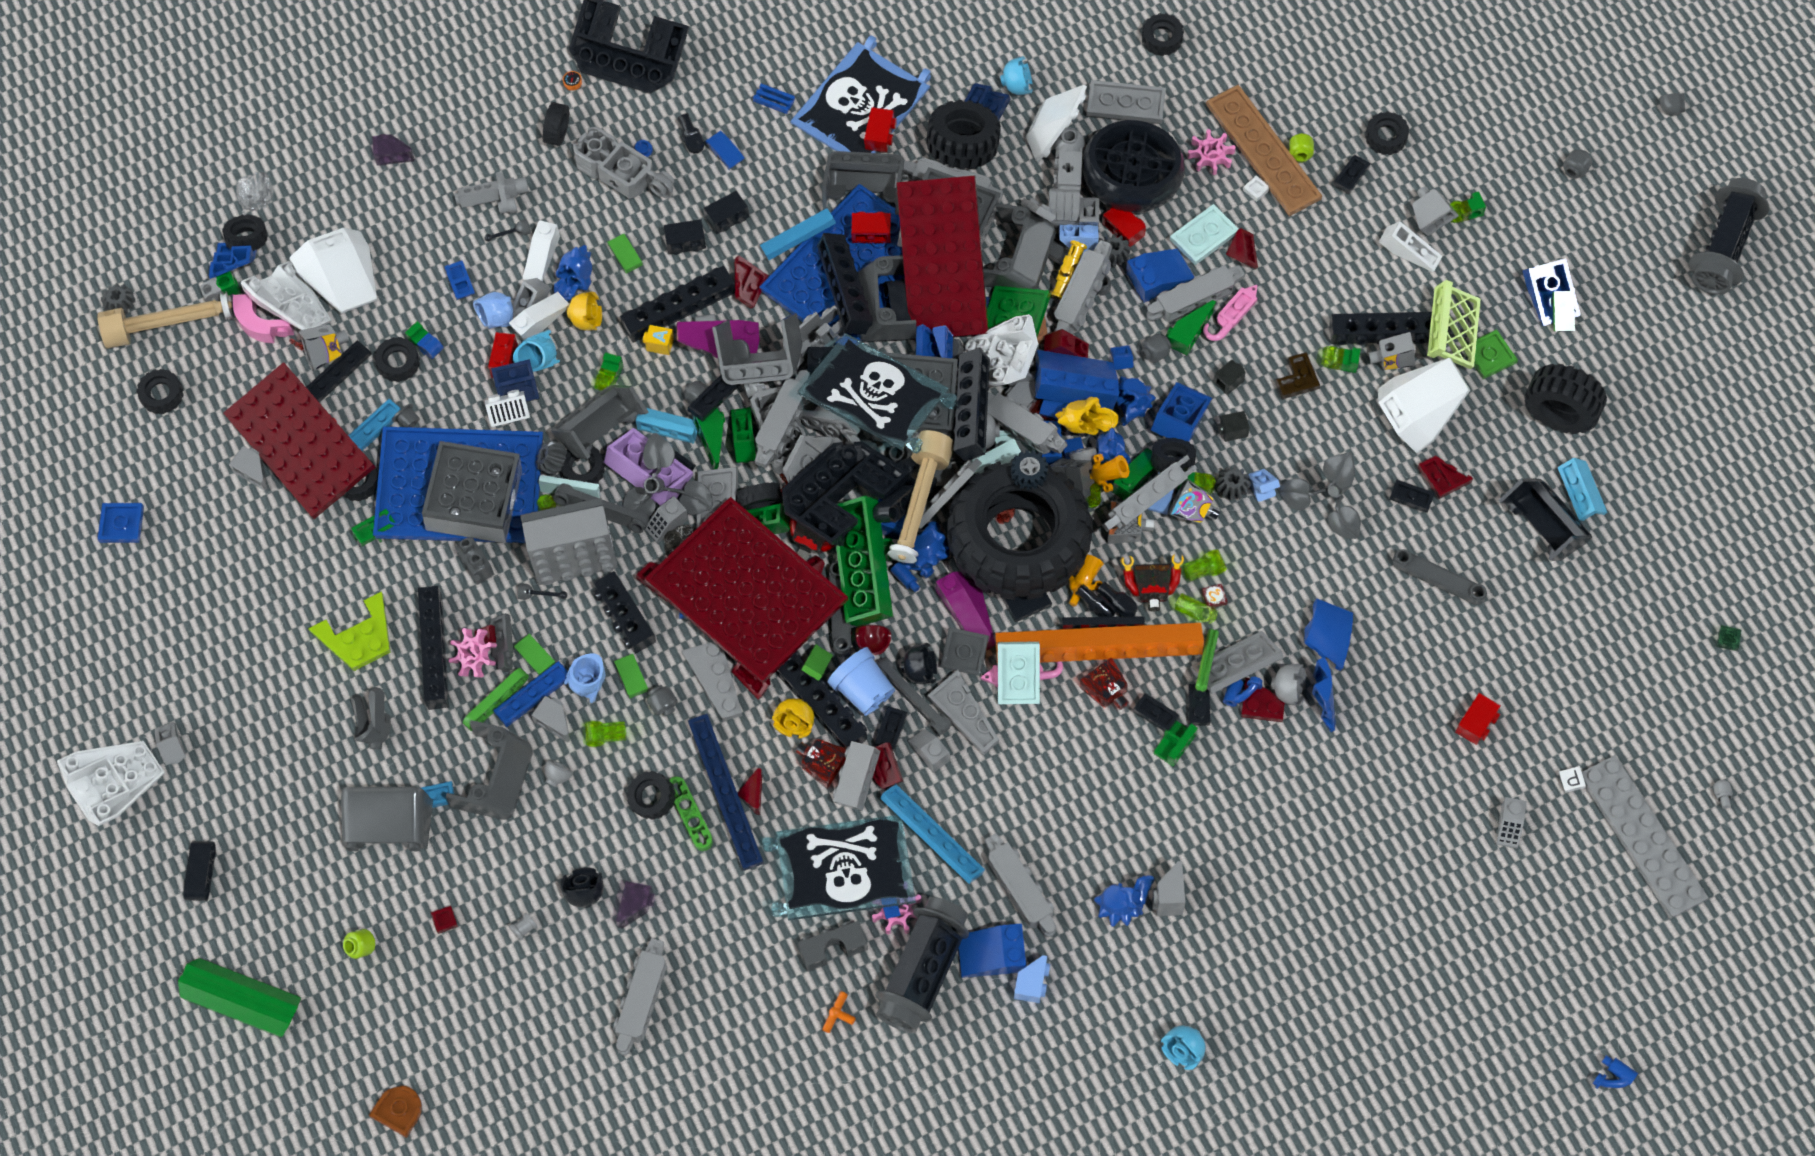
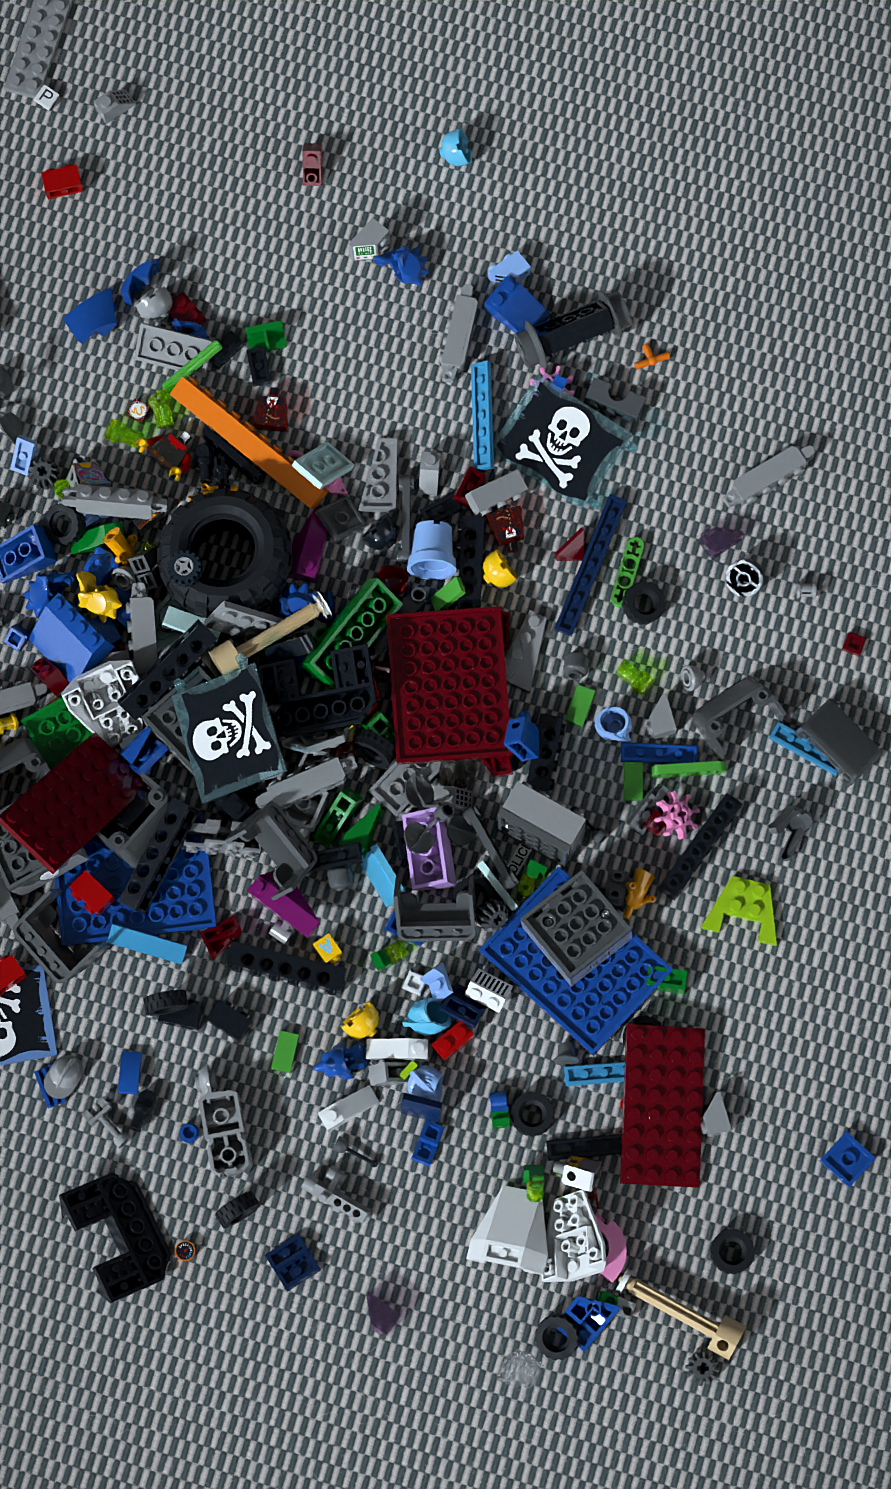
camera: 135 degrees left, 10 degrees up
(346, 307) = (534, 1182): none -> clear neon green leg
(455, 574) = (637, 890): none -> light orange piece
(481, 288) = (421, 1107): none -> dark blue slope
(487, 133) = (292, 1262): none -> dark blue slope
(515, 309) = (410, 1067): none -> lime tile
(554, 384) = (438, 982): none -> light blue slope
(572, 375) = (413, 983): none -> white tile
(649, 598) = (522, 737): none -> blue torso
(722, 117) = (120, 1138): none -> light grey bar
(736, 193) = (165, 1002): none -> black tyre
(770, 110) = (63, 1076): none -> light grey piece
(1293, 922) = (312, 164): none -> dark red slope

